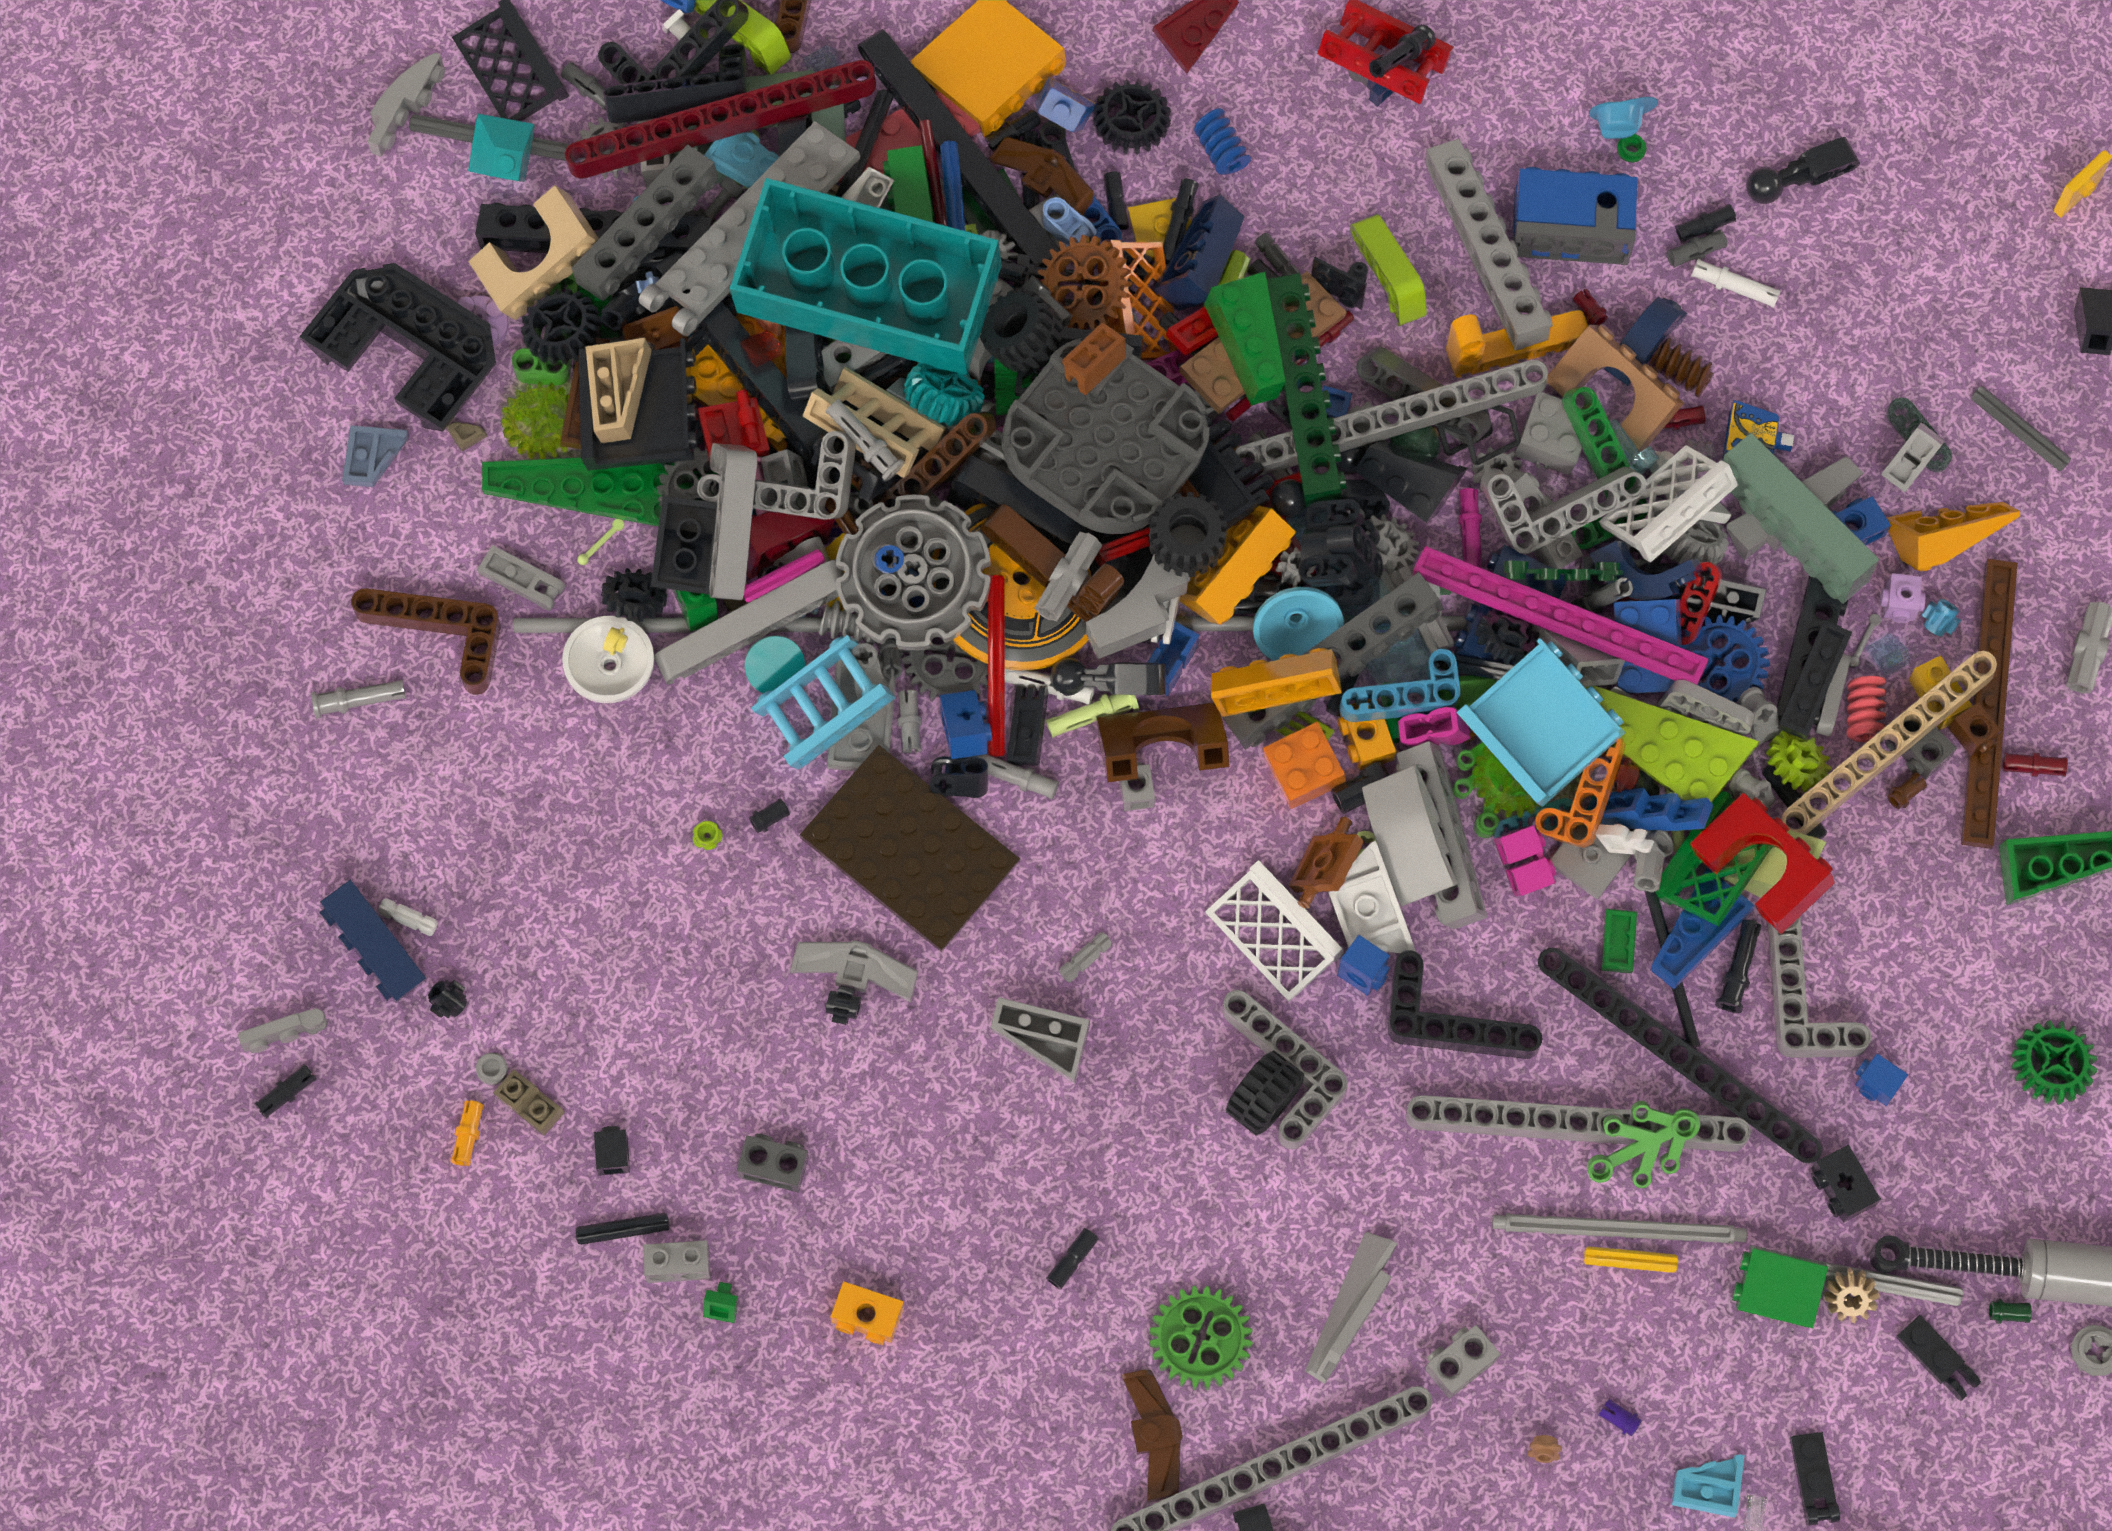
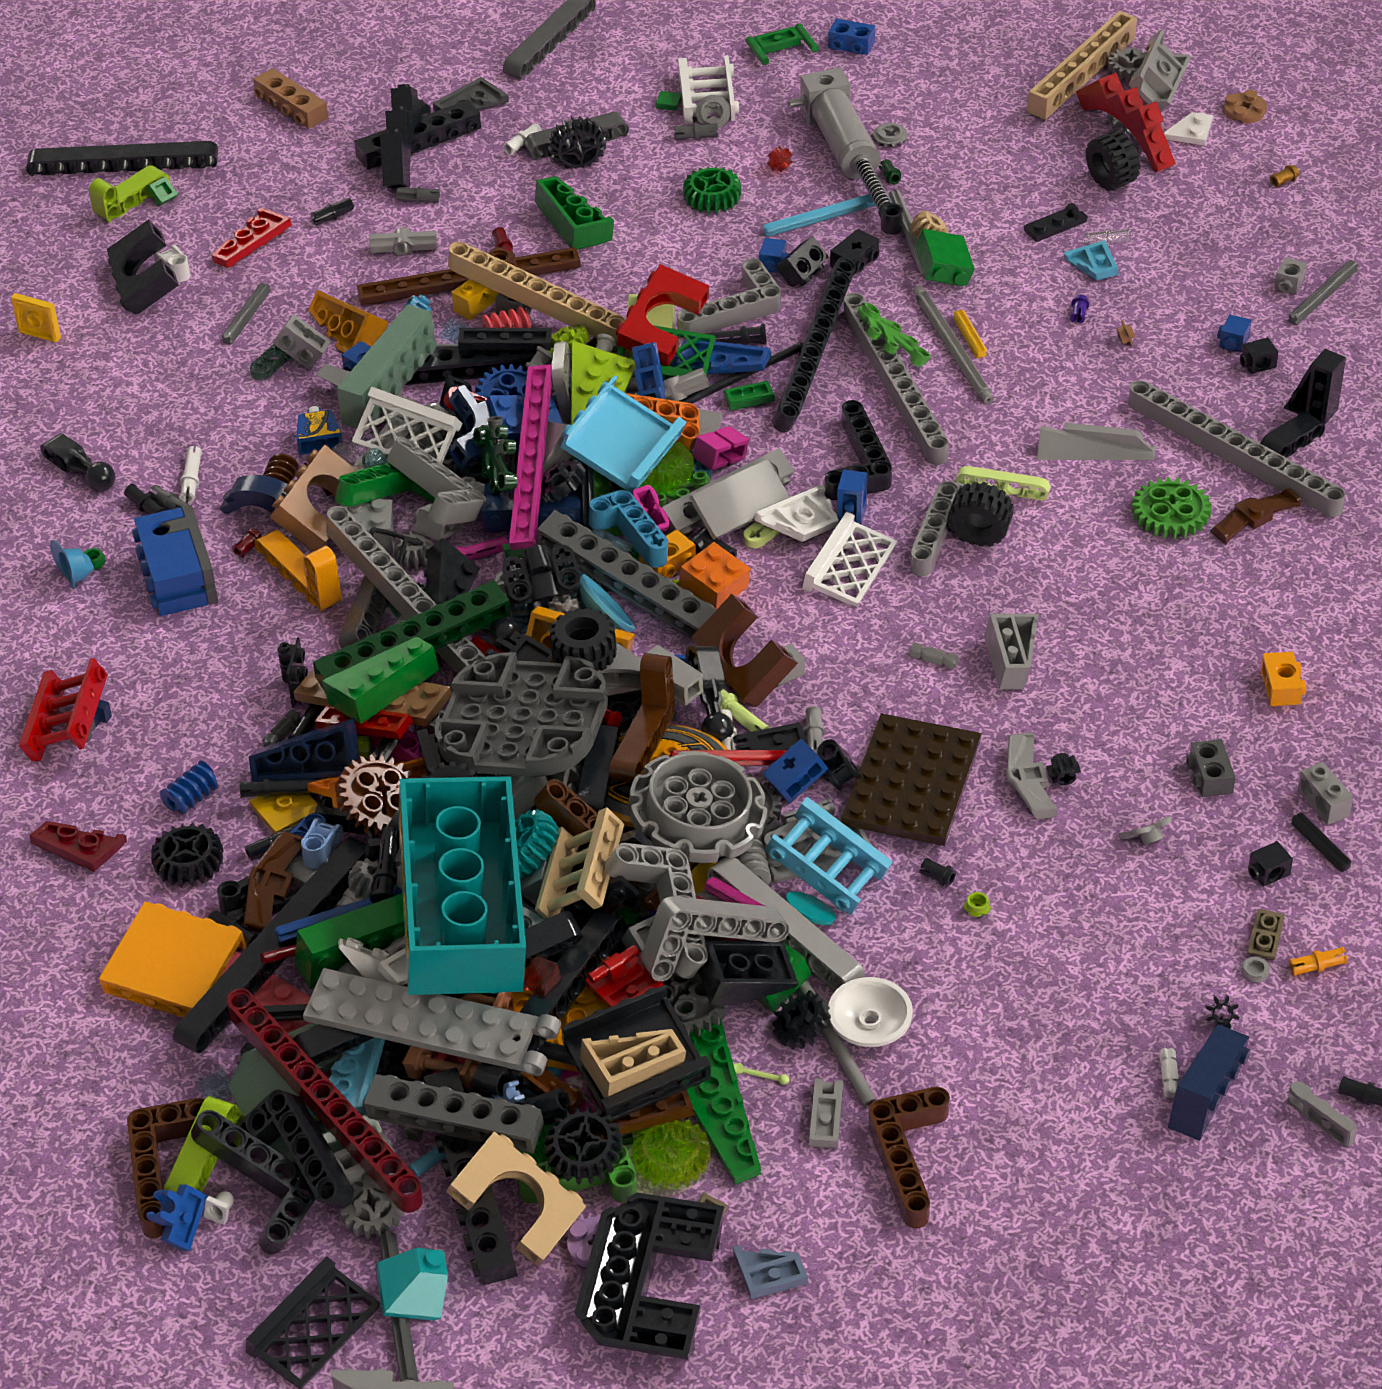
camera: 110 degrees left, 25 degrees down
(344, 699) = (1010, 1193): light grey pin -> none
(586, 84) = (311, 1252): dark grey pin -> none
(615, 641) = (855, 1002): light yellow plate -> none
(714, 1050) = (1148, 833): none -> light grey animal
(721, 1304) = (1335, 759): green tile -> none
(874, 450) = (597, 857): light grey pin -> none
(895, 552) = (704, 801): blue bush -> none
(1064, 106) = (206, 878): torso -> none
(1068, 576) = (652, 706): light grey piece -> none
(1069, 1262) = (1166, 591): black piece -> none
(1095, 357) = (465, 717): dark orange hinge -> none
(1275, 682) = (667, 582): light orange slope -> none
(1326, 863) = (786, 539): dark orange plate -> none
(1329, 1162) = (1003, 480): none -> yellowish green beam
(1391, 268) = (261, 653): lime beam -> none
(1408, 47) = (63, 680): black pin -> none
(1467, 1366) = (1096, 383): light grey brick -> none
(1521, 328) = (220, 601): light grey brick -> none
(1620, 839) = (678, 388): white plate -> none
(1851, 1099) = (802, 262): none -> black brick
(1936, 1356) = (940, 194): black hinge -> none
(1952, 1179) = (818, 215): none -> medium azure axle
(2086, 1174) = (780, 158): none -> clear red gear

